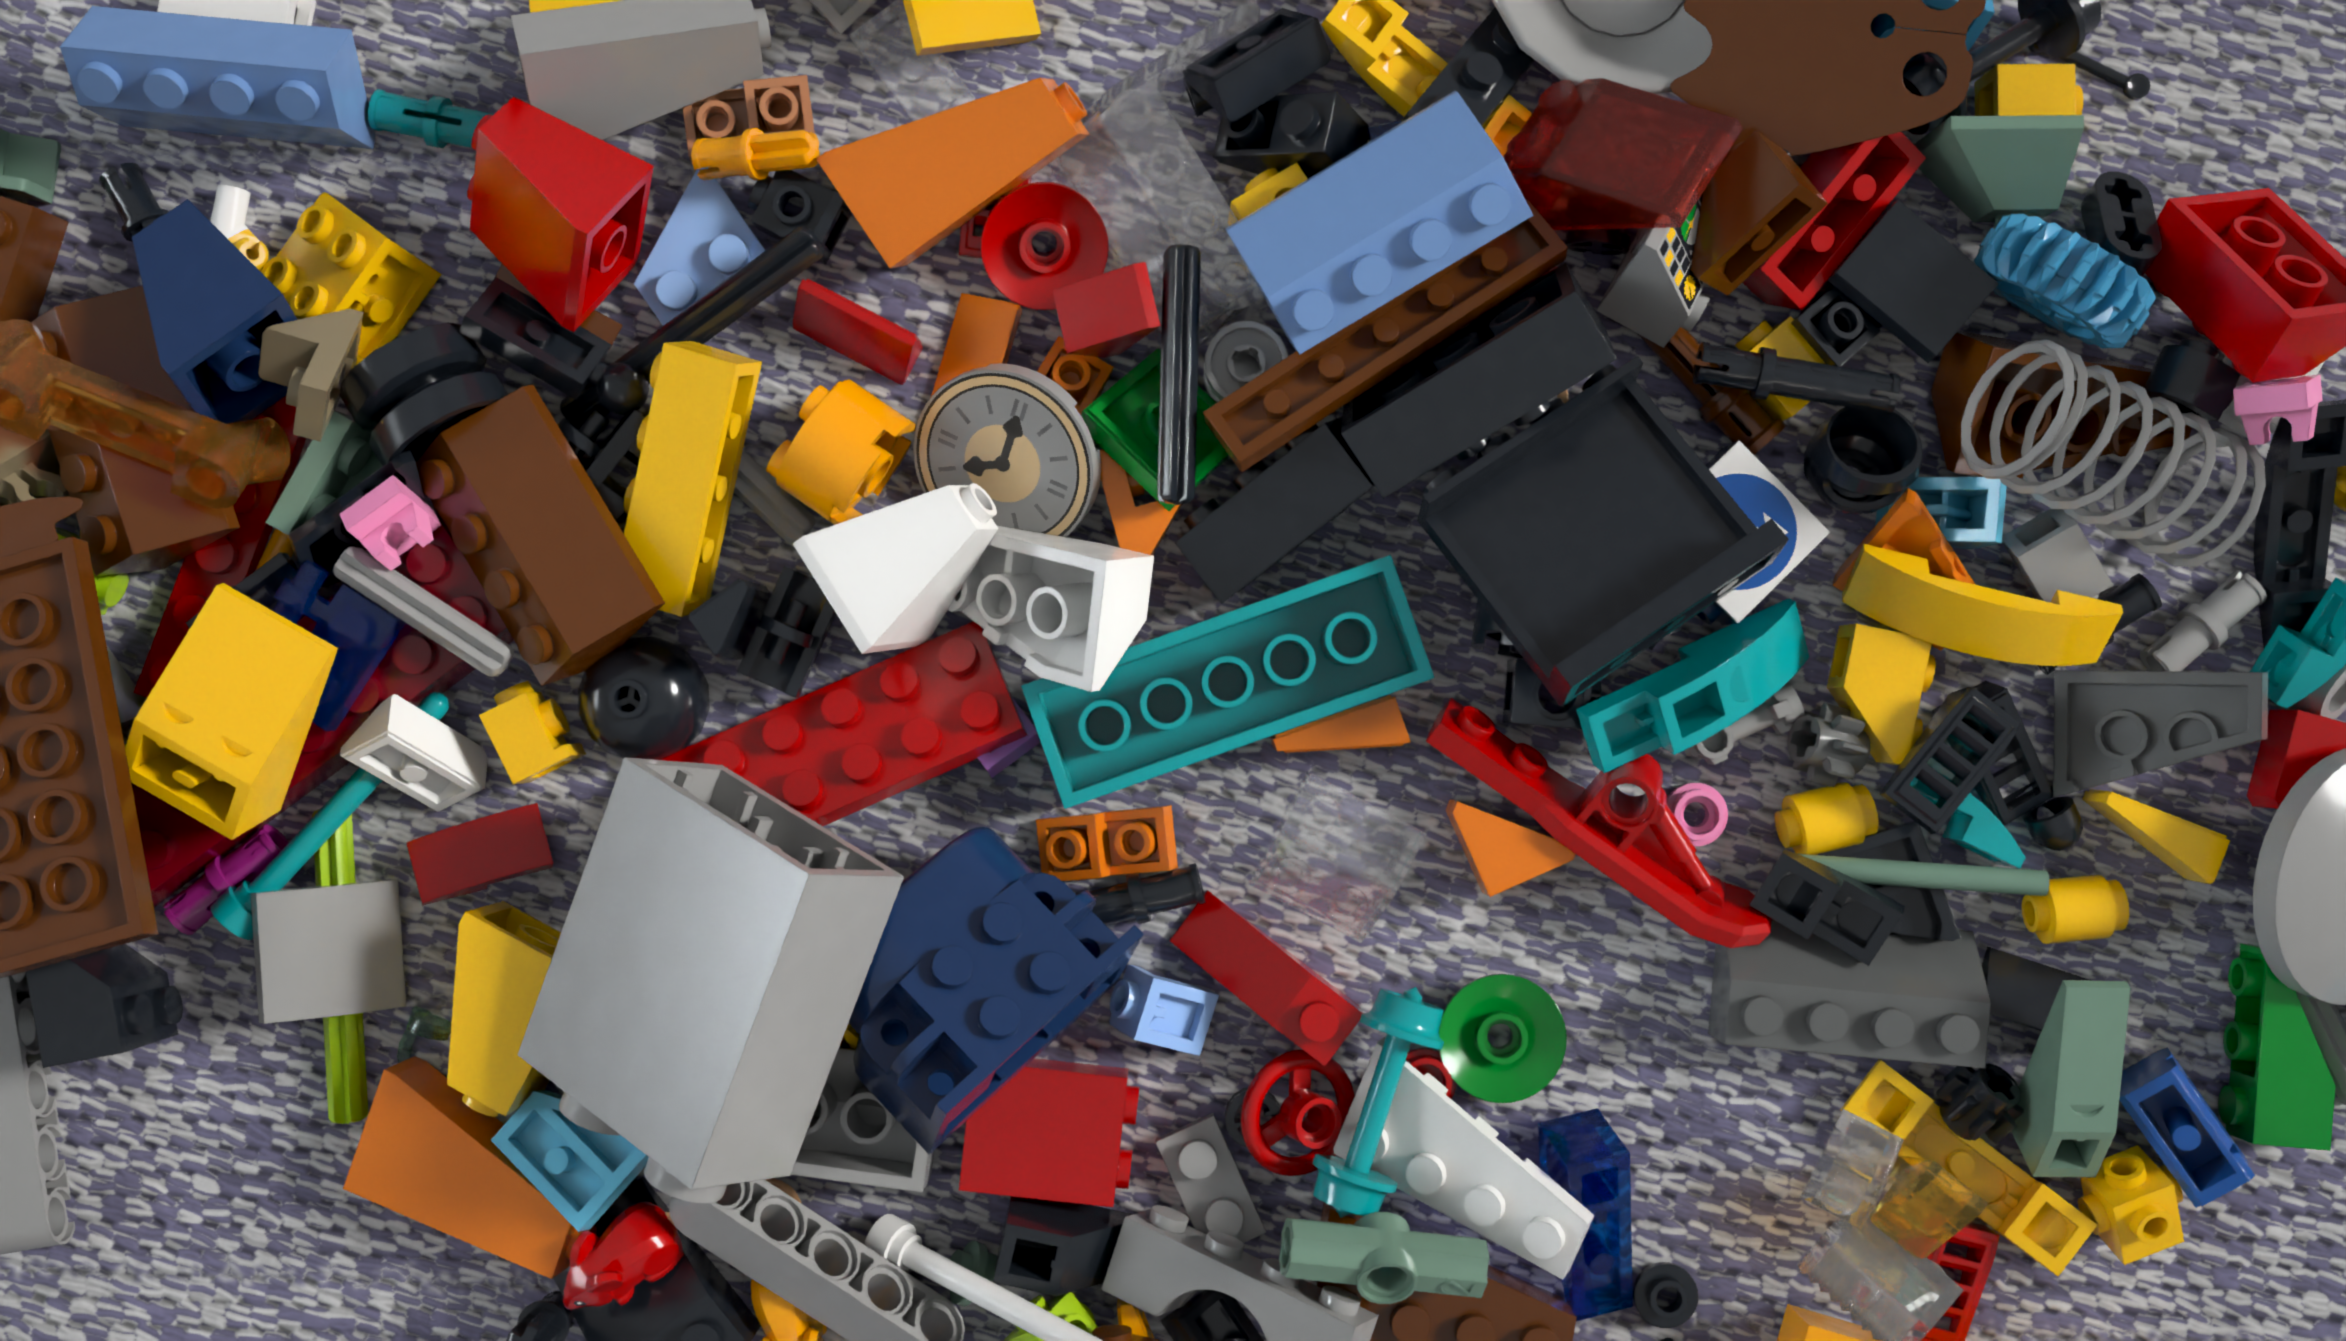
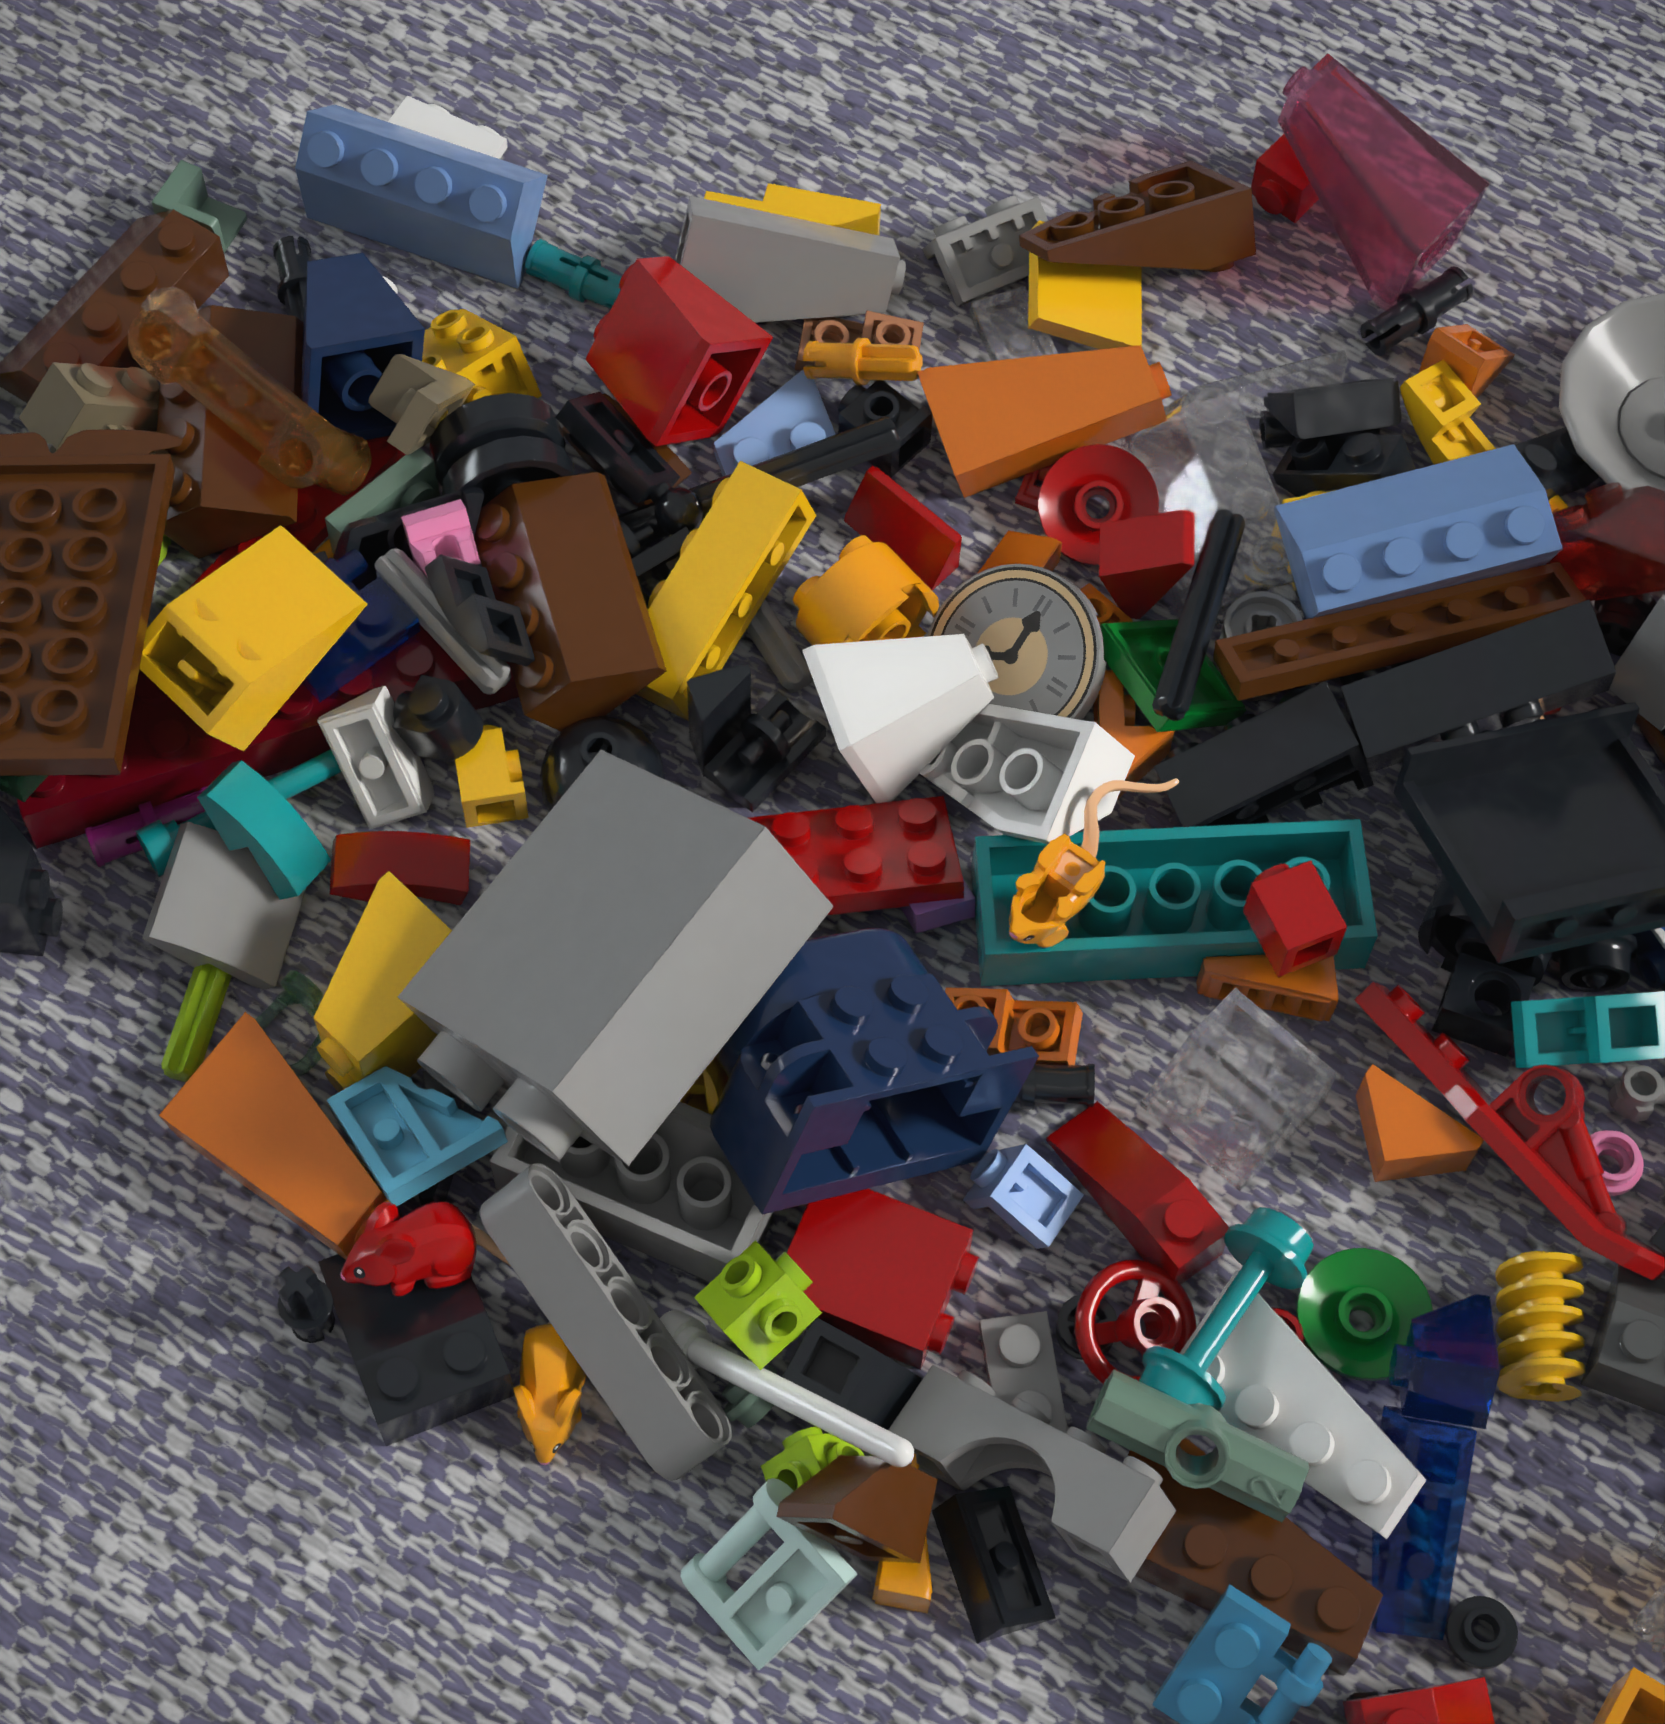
camera: 10 degrees right, 25 degrees down
(332, 874) = (258, 817): none -> teal slope
(452, 606) = (475, 614): none -> black slope
(458, 712) = (437, 719): none -> black plate
(951, 1230) = (760, 1303): none -> lime brick
(1120, 722) = (1065, 875): none -> light orange animal
(1350, 696) = (1294, 917): none -> red brick
(1591, 1084) = (1449, 1364): none -> clear blue slope
(1665, 1002) = (1536, 1324): none -> yellow piece

